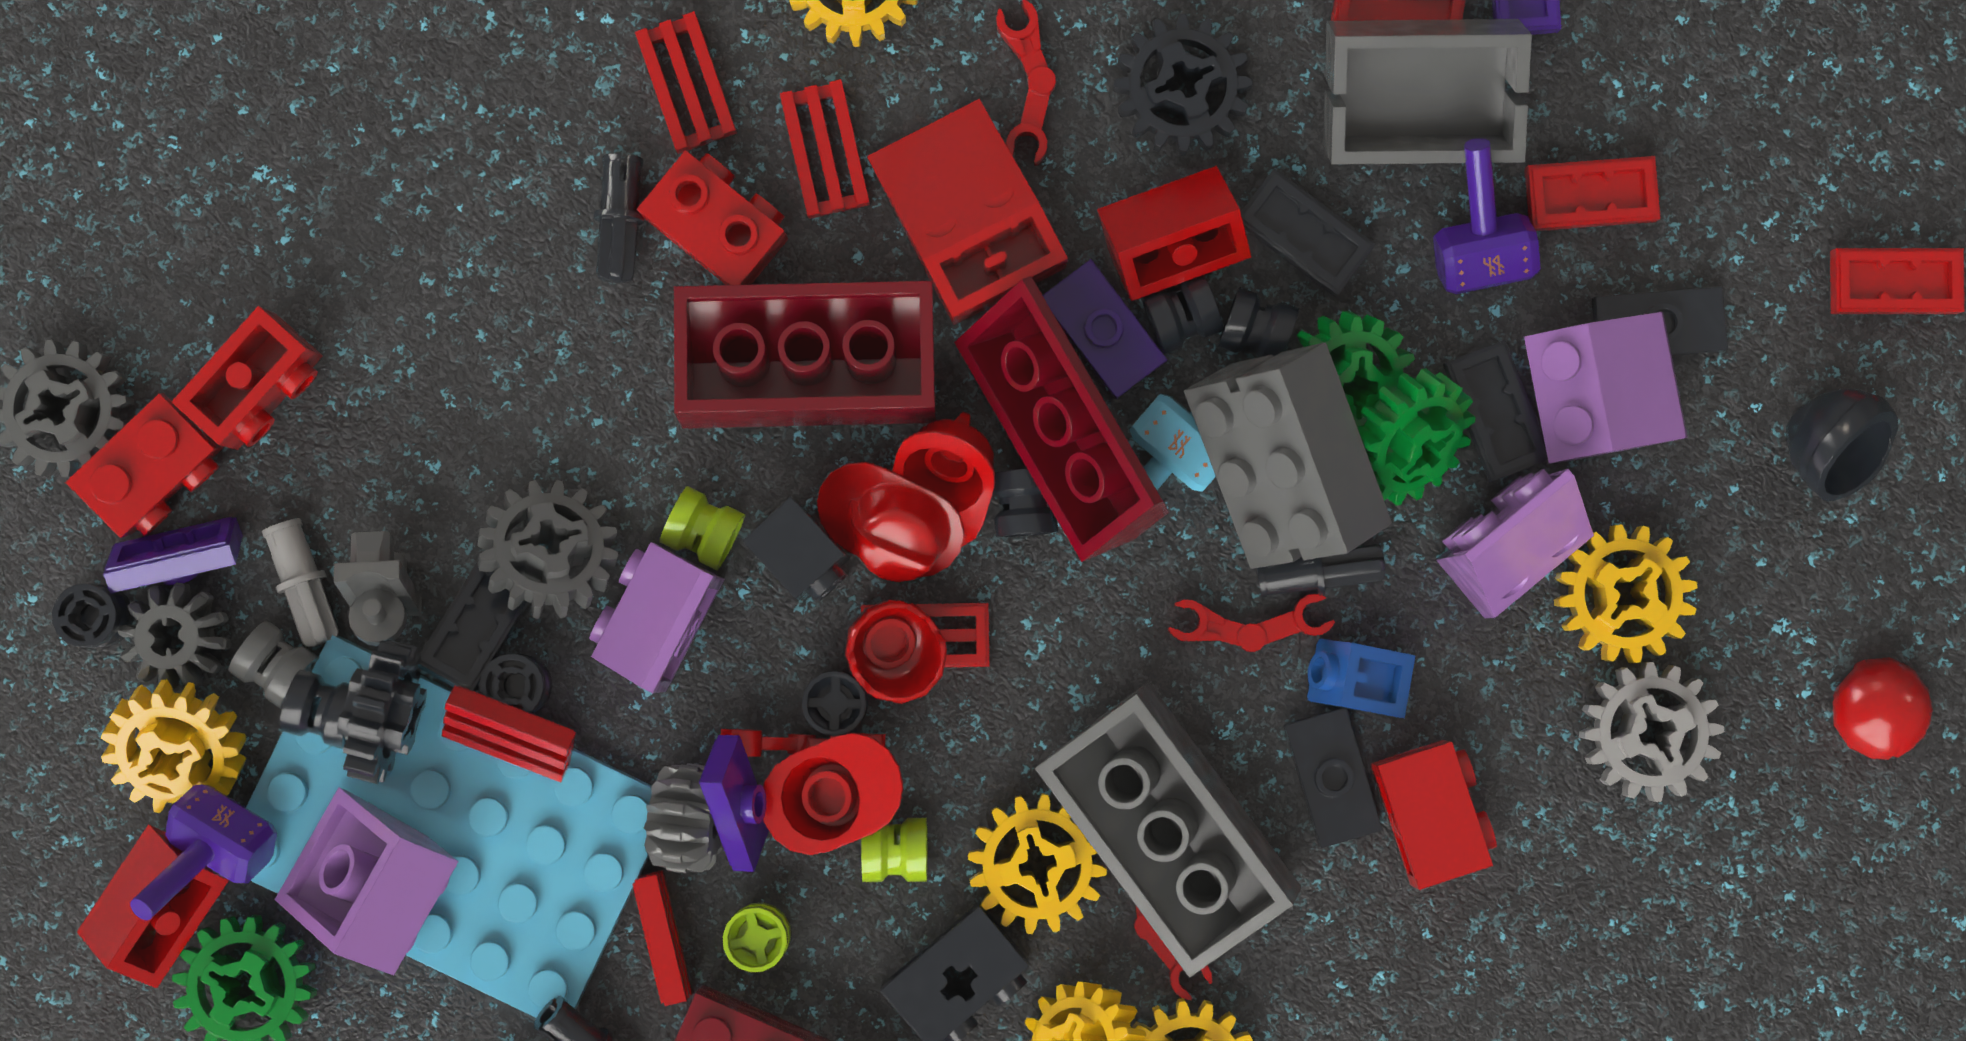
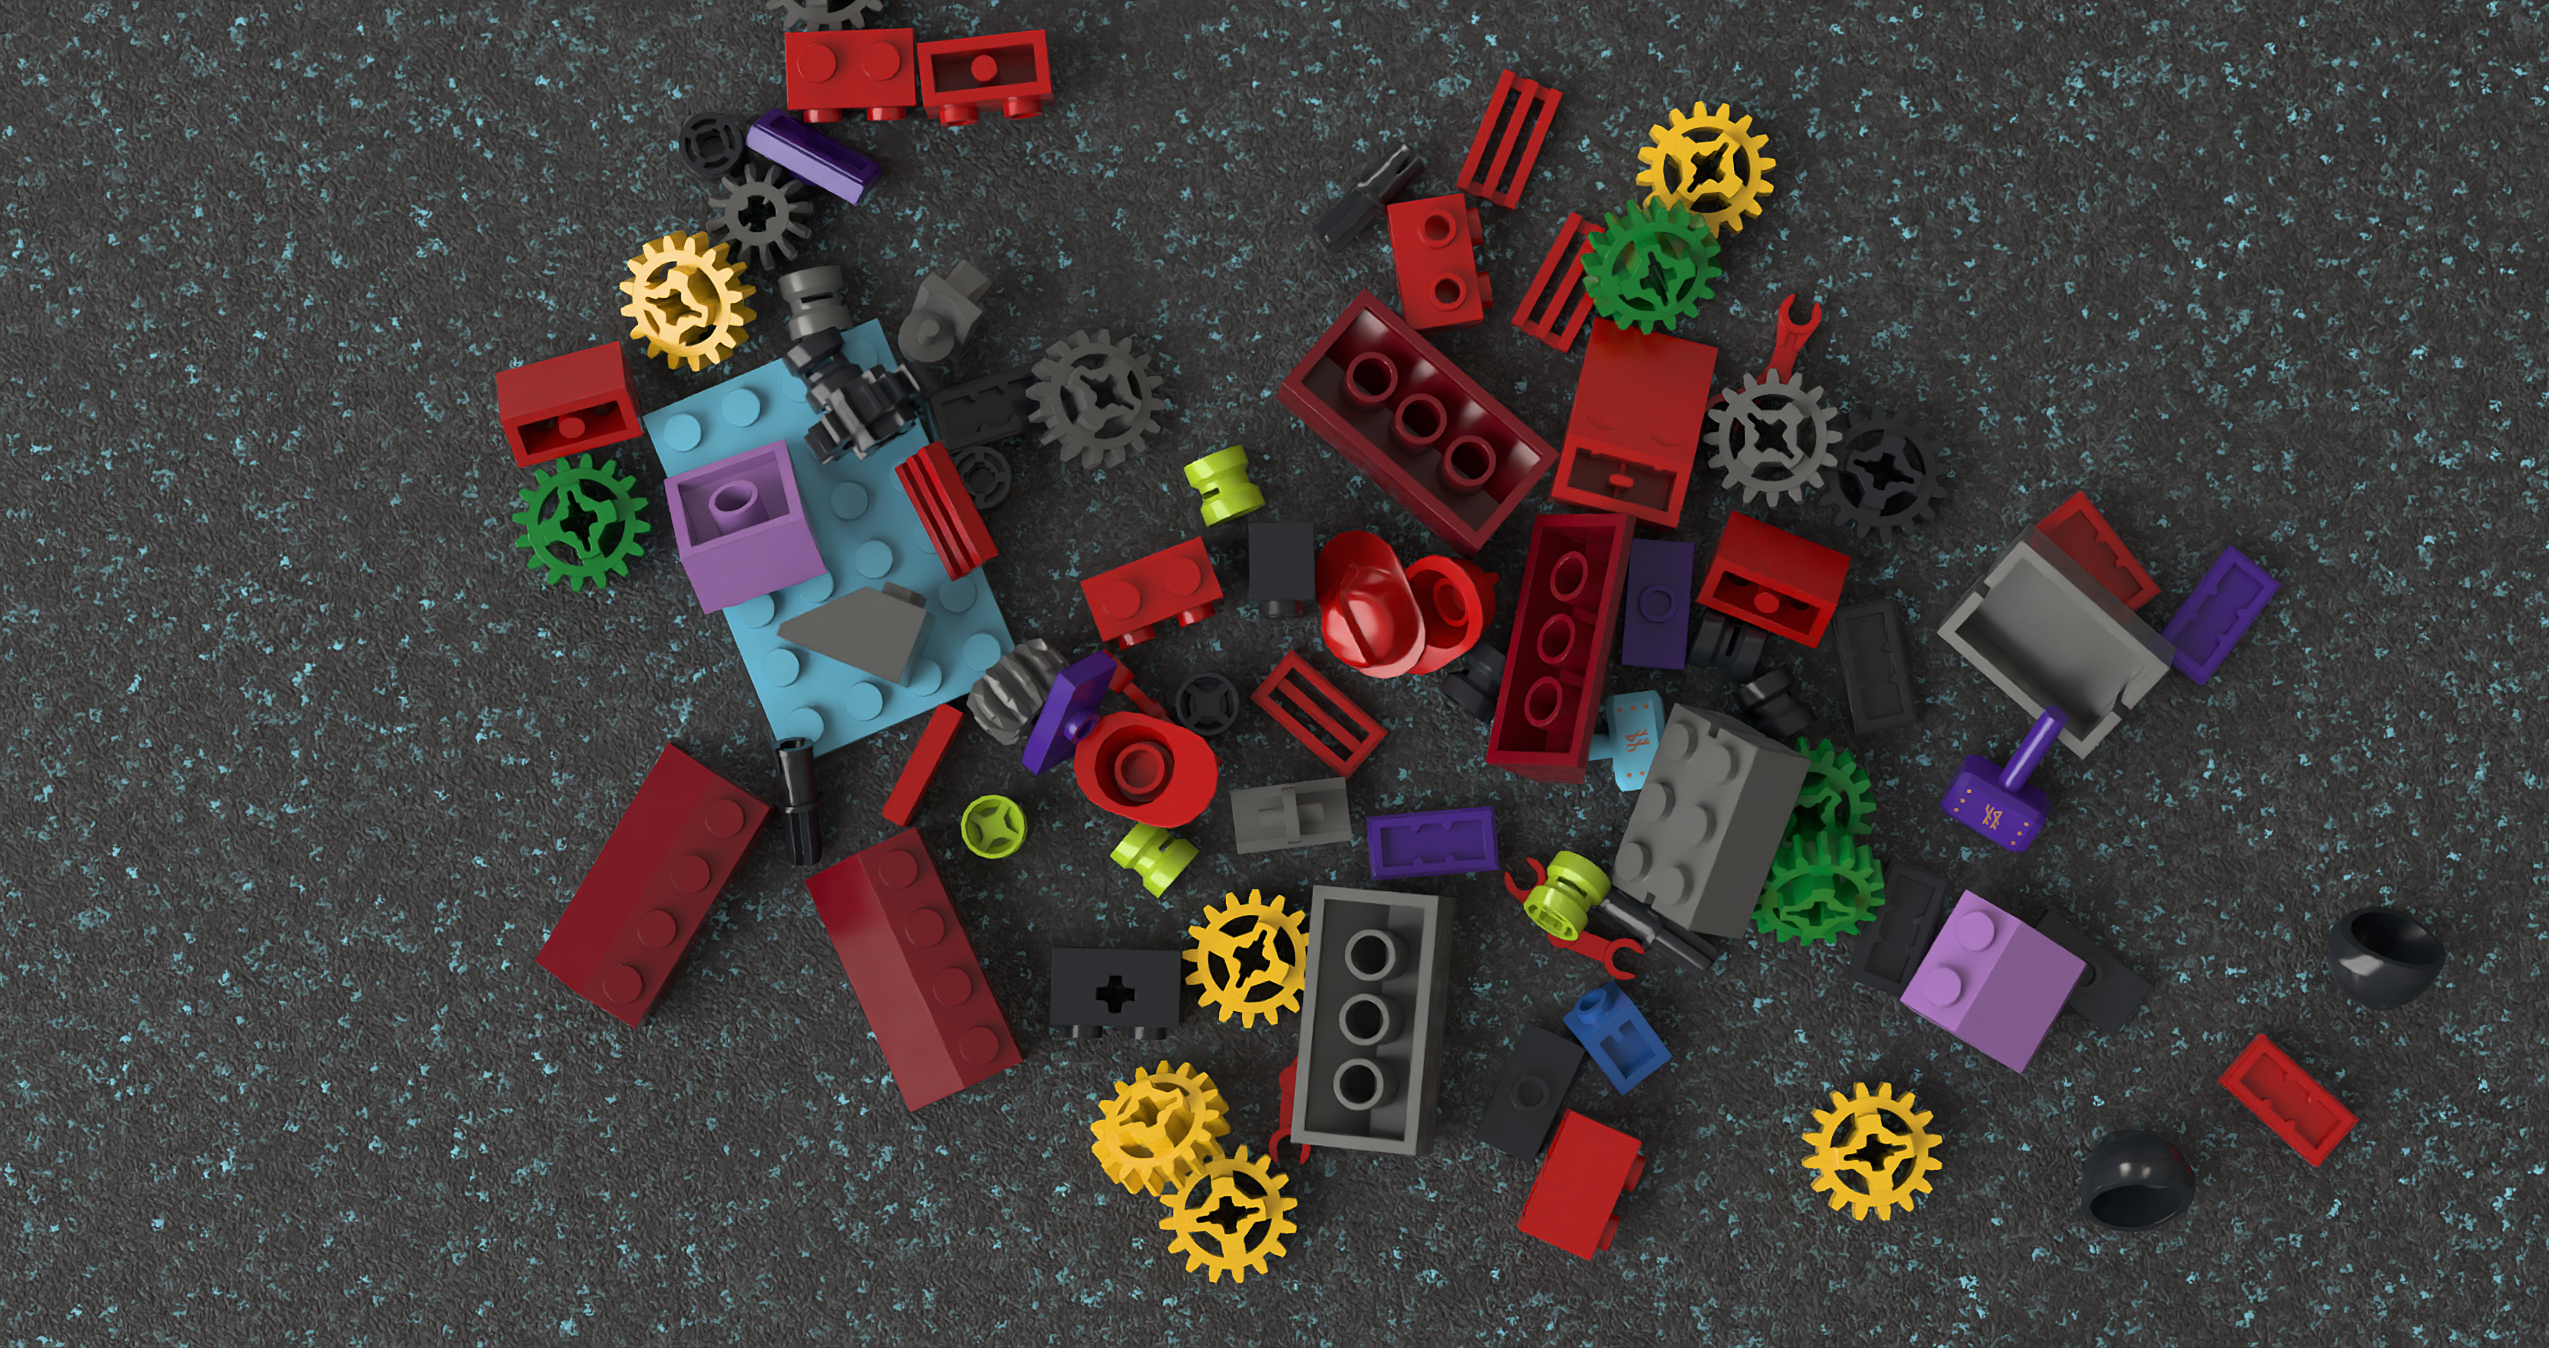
camera: 40 degrees right, 0 degrees up
(211, 834) = (663, 391): dark purple piece -> none
(301, 582) = (889, 260): light grey axle -> none
(527, 879) = (868, 631): none -> dark grey slope
(654, 617) = (1131, 518): medium lavender slope -> none
(718, 655) = (1152, 592): none -> red brick
(855, 100) = (1621, 263): none -> green gear
(896, 651) = (1288, 706): red hair -> none
(971, 730) = (1291, 815): none -> dark grey hips
(1081, 97) = (1751, 459): none -> dark grey gear
(1095, 656) = (1432, 843): none -> dark purple plate
(1231, 606) = (1567, 895): none -> lime wheel
(1519, 543) = (1824, 1042): medium lavender slope -> none
(1592, 193) = (2116, 829): red plate -> none
(1676, 721) = (1825, 1279): light grey gear -> none
(1874, 112) = (2383, 957): none -> black hat

